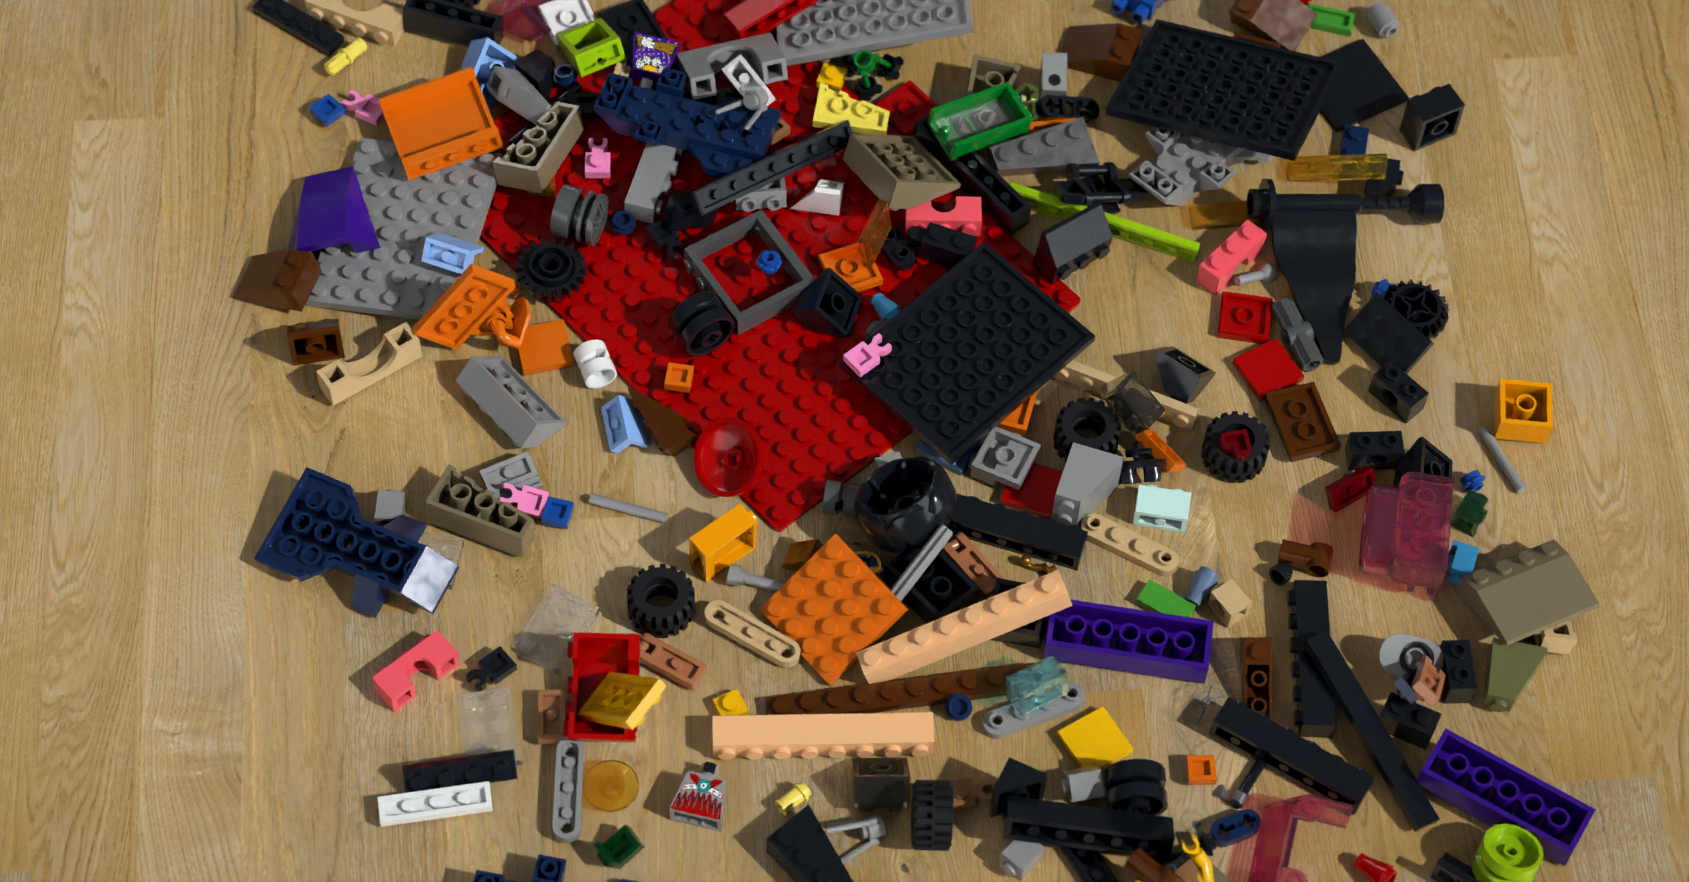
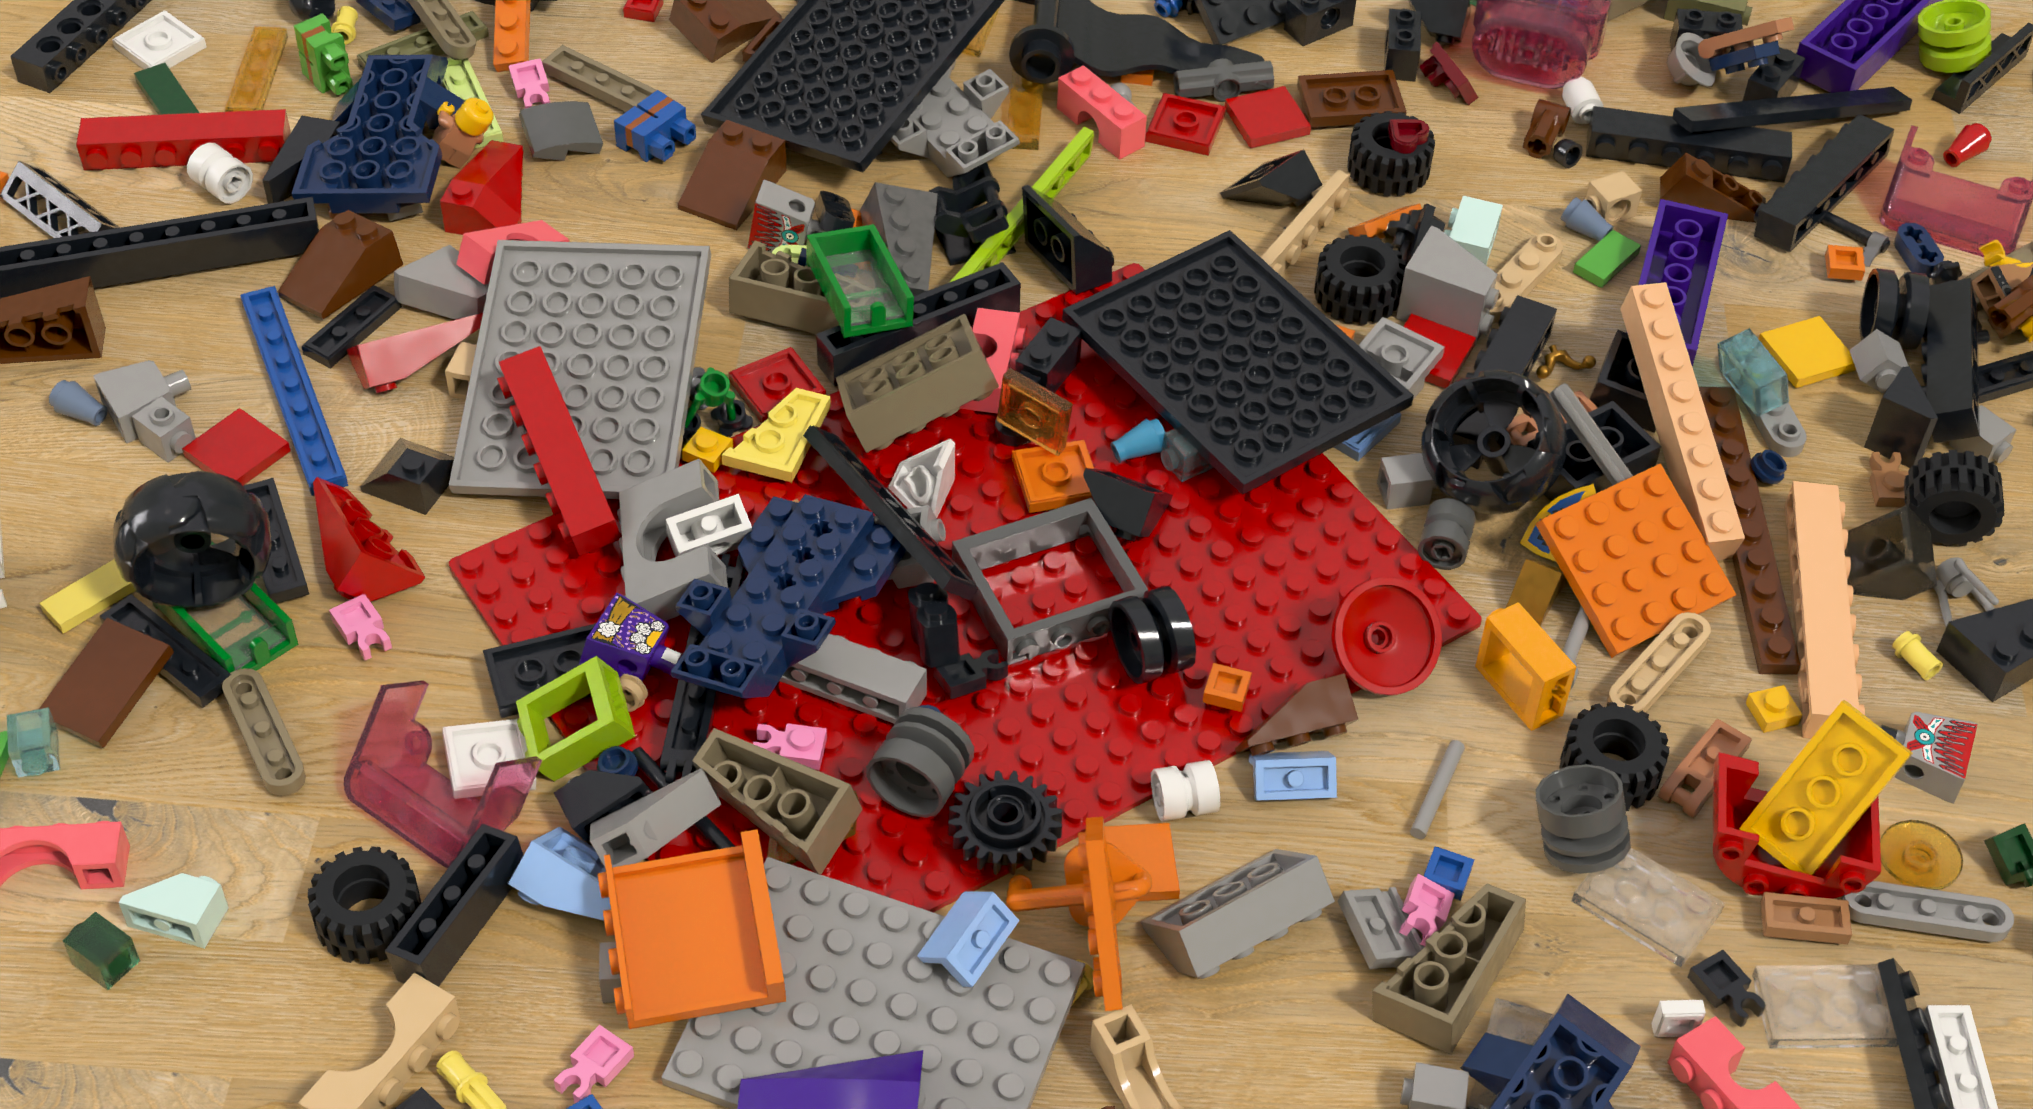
camera: 80 degrees left, 10 degrees down
(462, 640) = (1677, 1017): none -> white tile
(596, 575) = (1583, 818): none -> dark grey wheel
(754, 99) = (766, 507): light grey plant -> none
(769, 267) = (1054, 541): blue plate -> none
(866, 357) = (1247, 449): bright pink plate -> none
(1132, 402) = (1337, 212): clear smoke slope -> none
(1345, 581) = (1581, 97): none -> white brick

